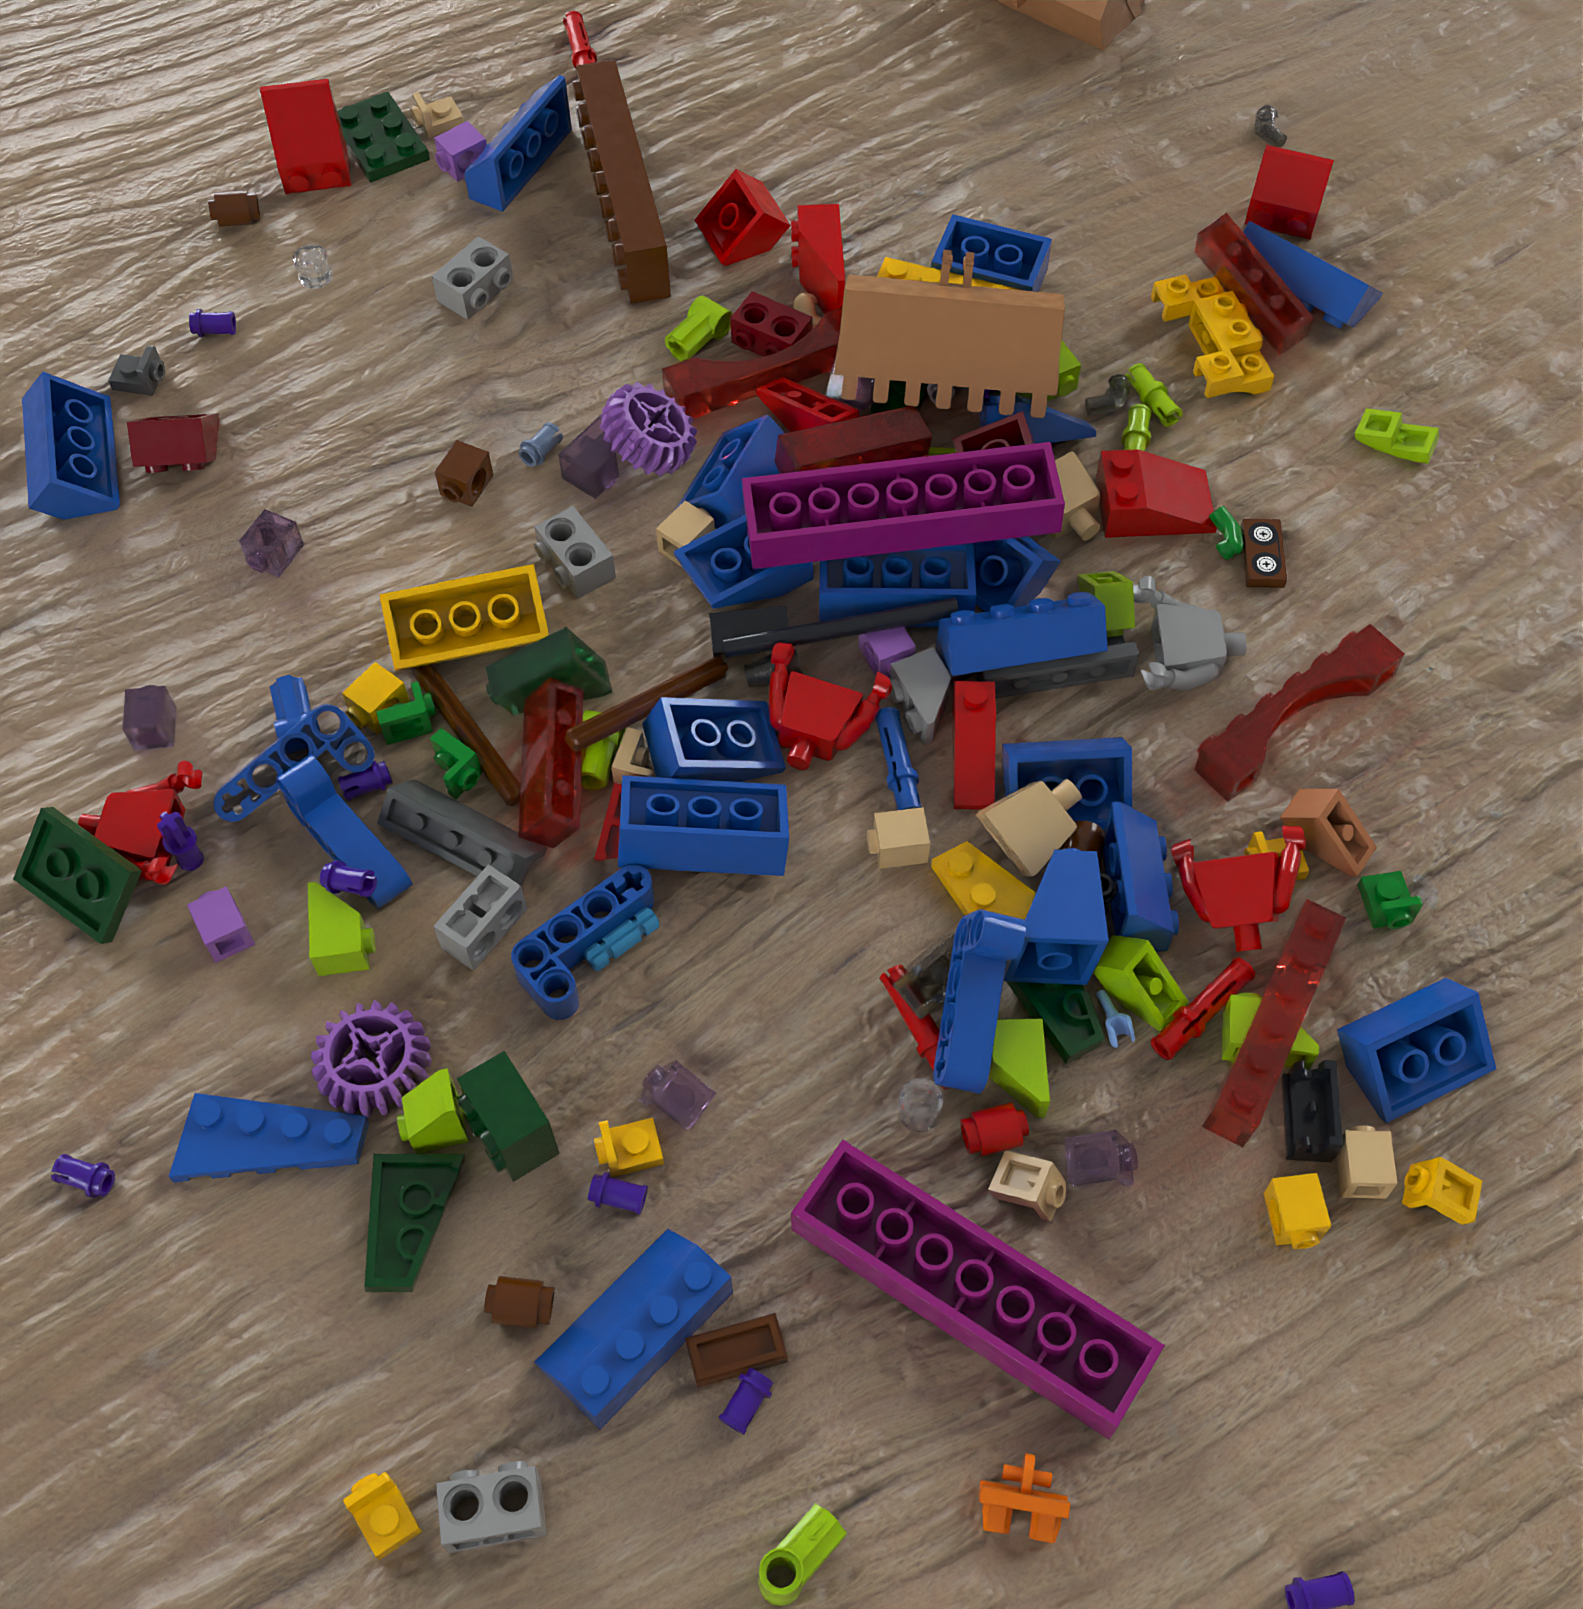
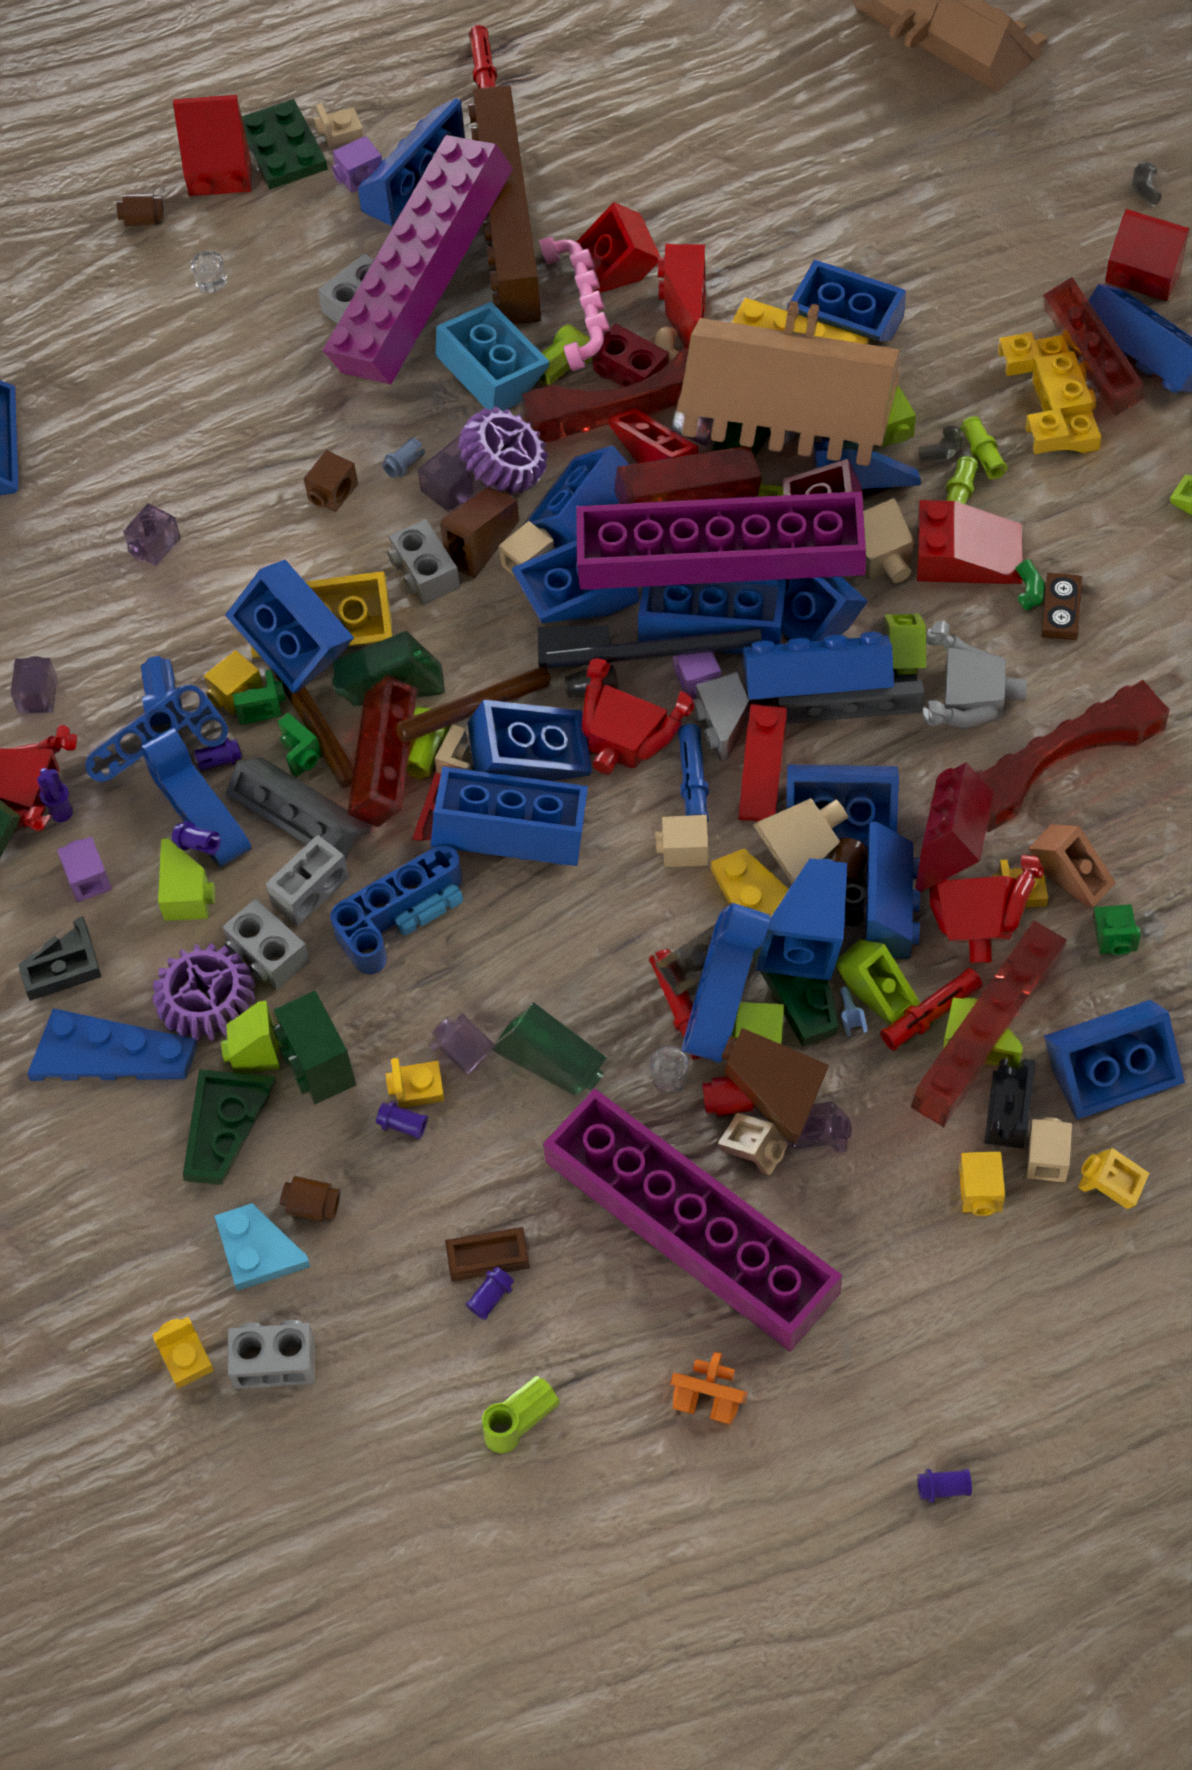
camera: 10 degrees right, 0 degrees up
(138, 373) = (41, 365): dark grey bracket -> none
(173, 441) = (71, 433): dark red slope -> none
(200, 1038) = (61, 963): none -> pearl dark grey wing
(212, 323) = (112, 321): dark purple pin -> none
(433, 630) = (288, 625): none -> blue slope
(445, 990) = (271, 940): none -> light grey brick
(460, 1368) = (257, 1247): none -> medium azure wing
(536, 237) = (418, 259): none -> magenta brick
(622, 333) = (490, 356): none -> dark azure slope
(631, 512) = (478, 528): none -> reddish brown slope
(636, 1326) = (406, 1227): blue slope -> none
(723, 270) = (590, 301): none -> bright pink bar
(781, 1095) = (550, 1050): none -> clear green slope
(1050, 1111) = (775, 1079): none -> reddish brown slope
(1201, 801) = (954, 826): none -> dark red slope

